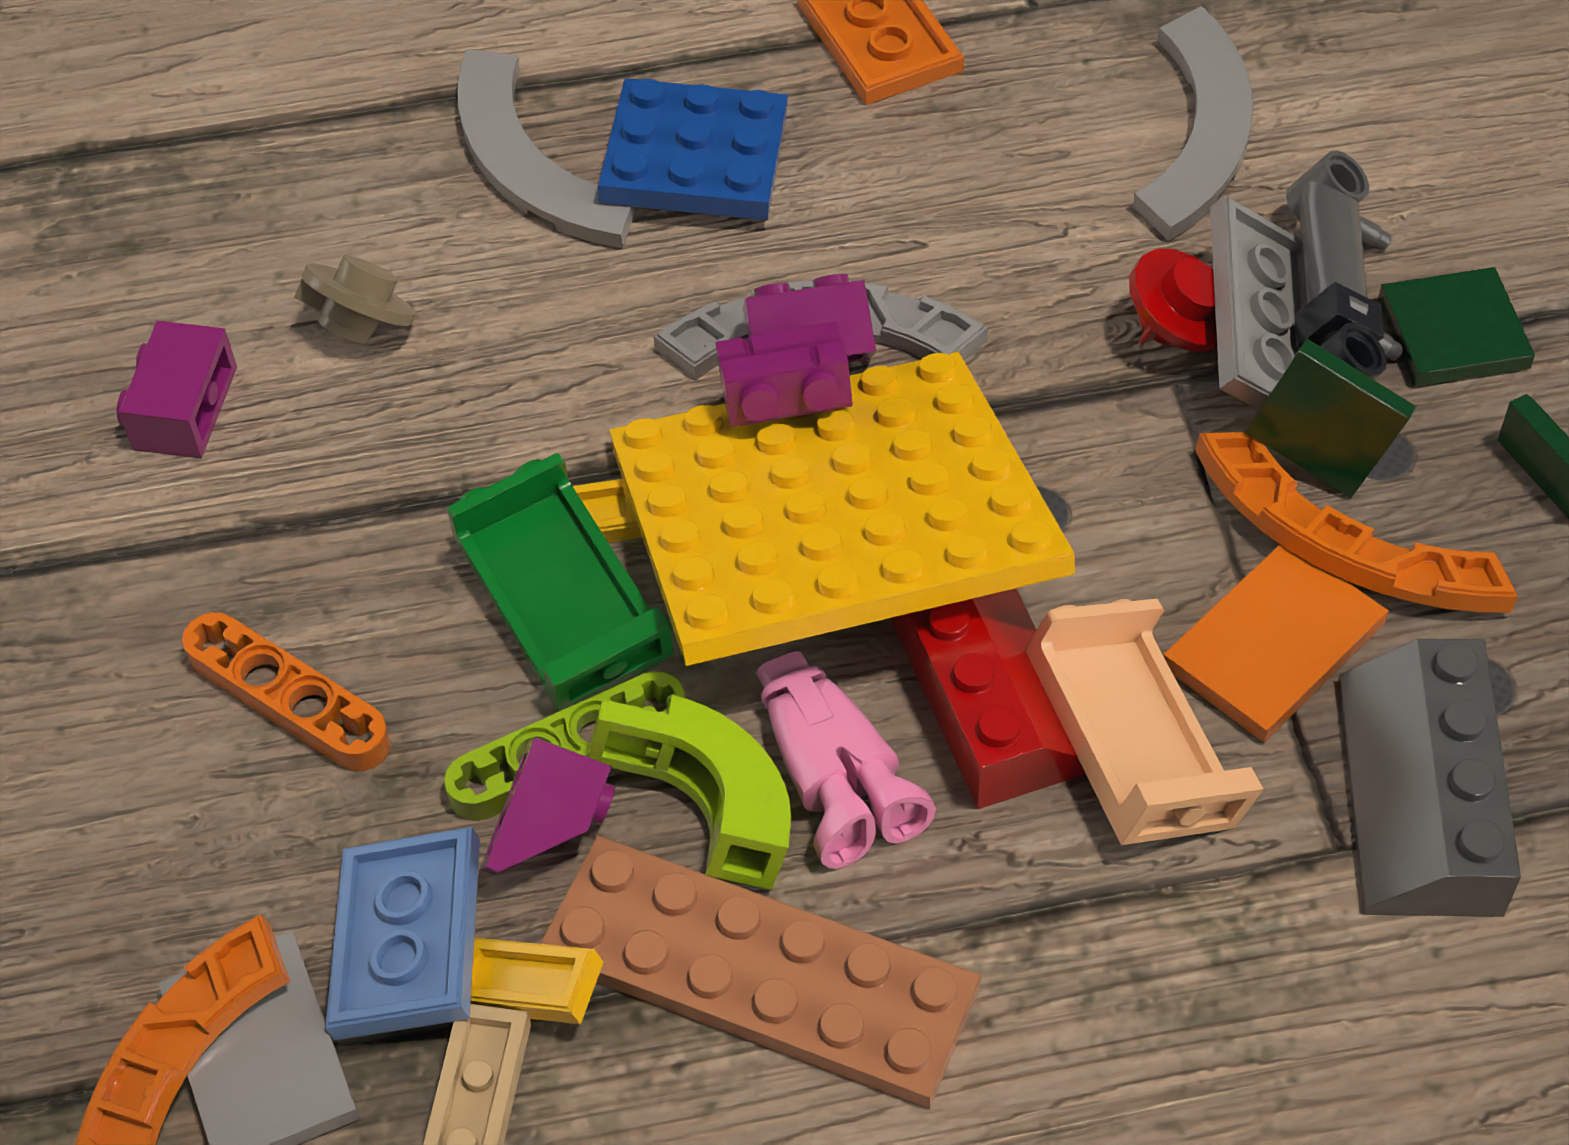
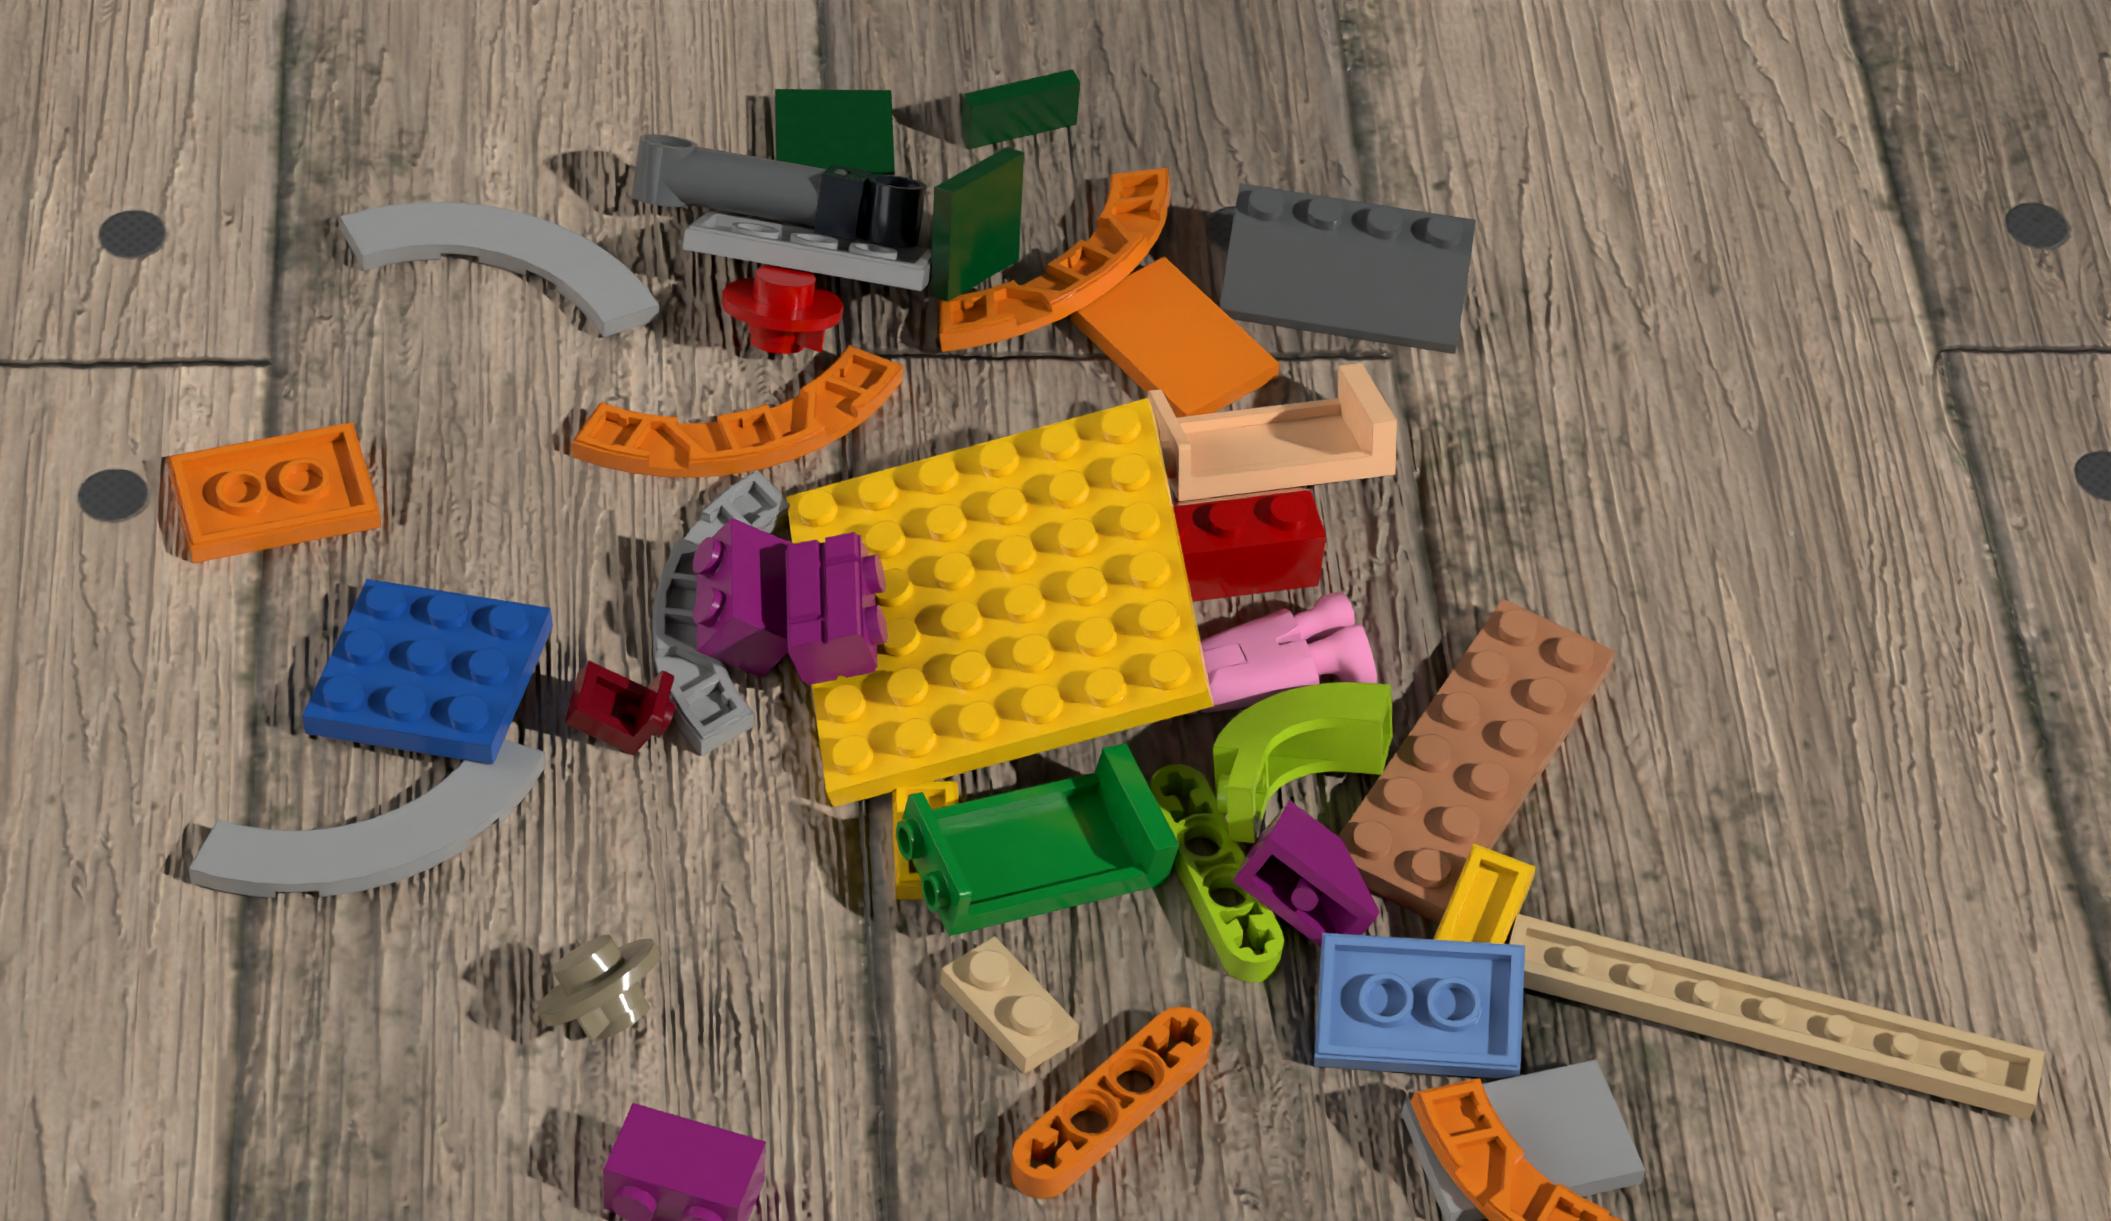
camera: 90 degrees left, 5 degrees down
(392, 600) = (1009, 1005): none -> tan plate
(675, 270) = (619, 708): none -> dark red bracket
(1044, 333) = (744, 439): none -> orange tile

